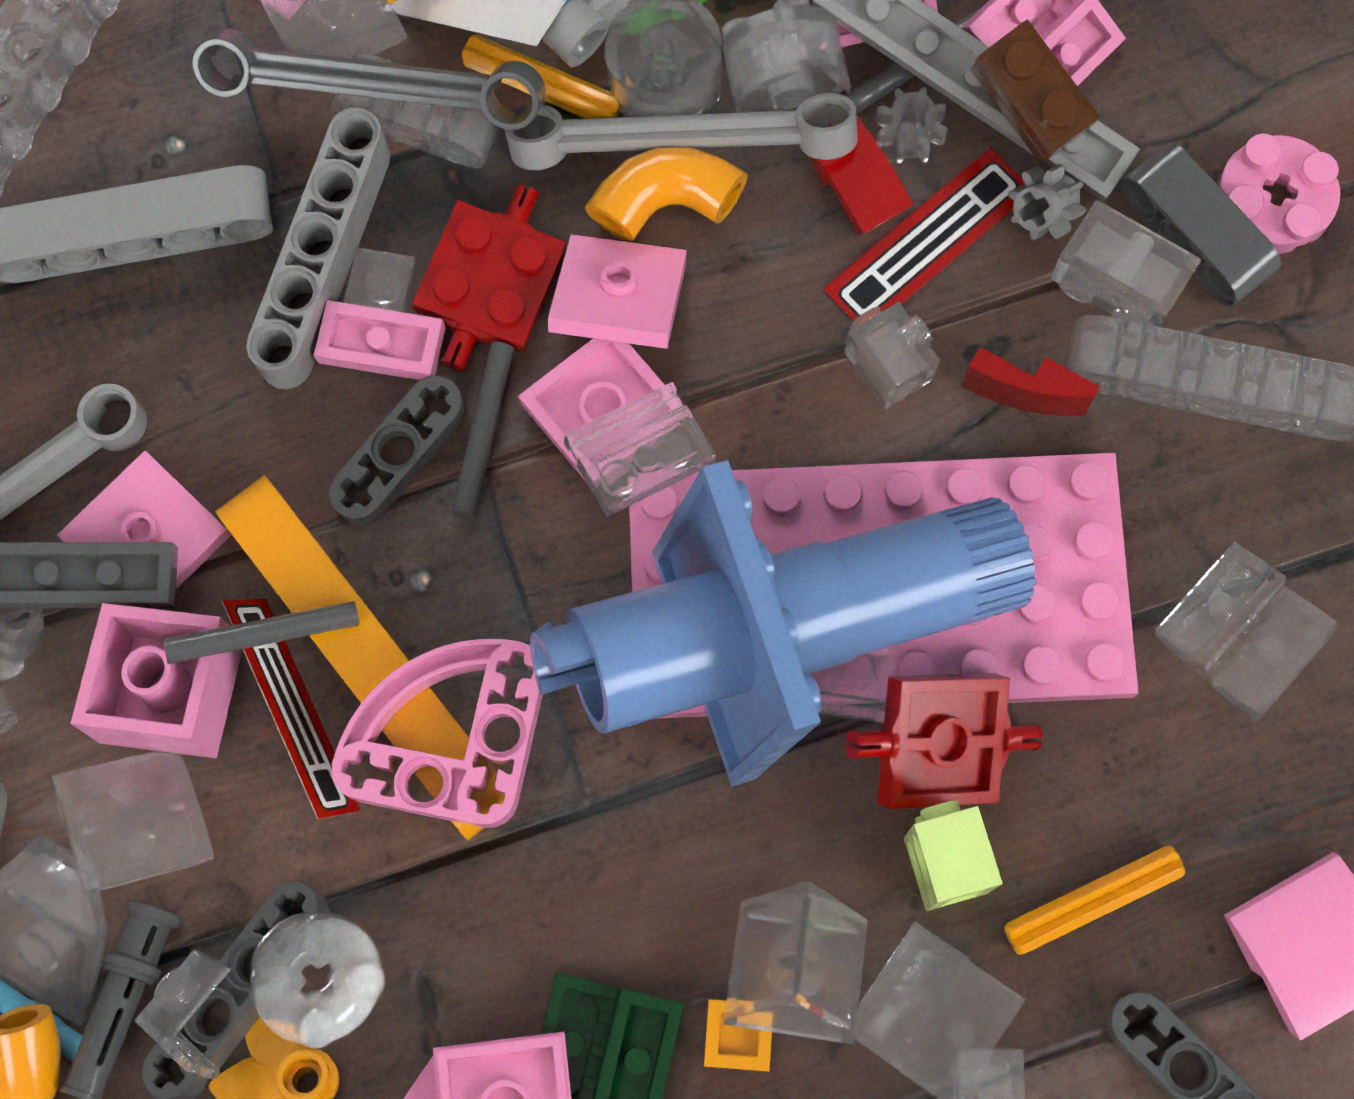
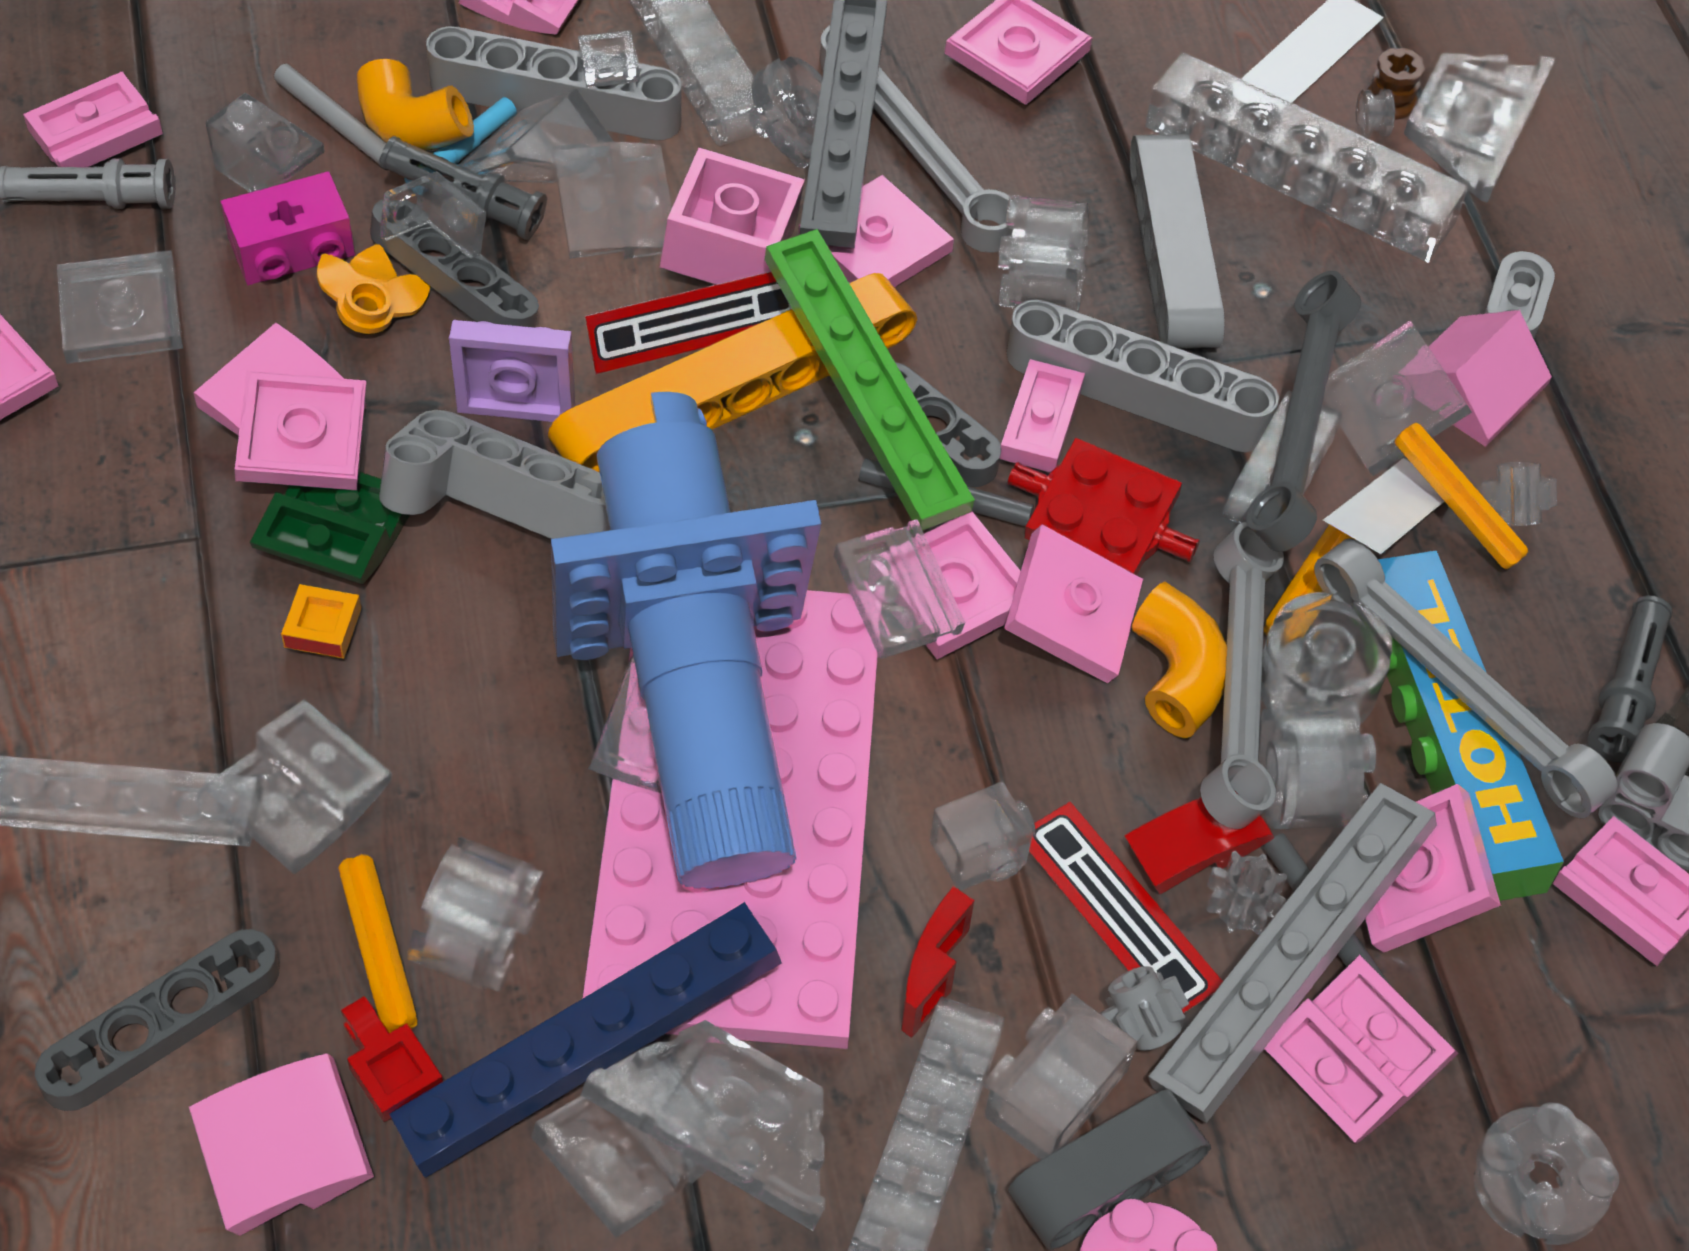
camera: 85 degrees right, 20 degrees down
(178, 342) = (1044, 251): none -> clear brick
(260, 632) = (756, 277): dark grey bar -> none
(318, 1015) = (428, 290): clear plate -> none
(375, 507) = (869, 380): none -> bright green plate
(381, 280) = (1102, 419): clear plate -> none
(404, 907) = (512, 370): none -> lavender plate
(458, 776) = (602, 412): bright pink beam -> none
(554, 865) = (491, 471): none -> light grey beam
(797, 965) = (369, 672): clear slope -> none
(943, 740) = (561, 803): red plate -> none
(951, 855) = (441, 790): yellowish green brick -> none
(1034, 91) = (1259, 976): reddish brown brick -> none
(1074, 798) = (475, 914): none -> clear brick
(1177, 678) = (584, 1038): none -> dark blue plate
(1220, 545) = (726, 1113): none -> clear wing
(1223, 858) = (389, 1065): none -> red plate

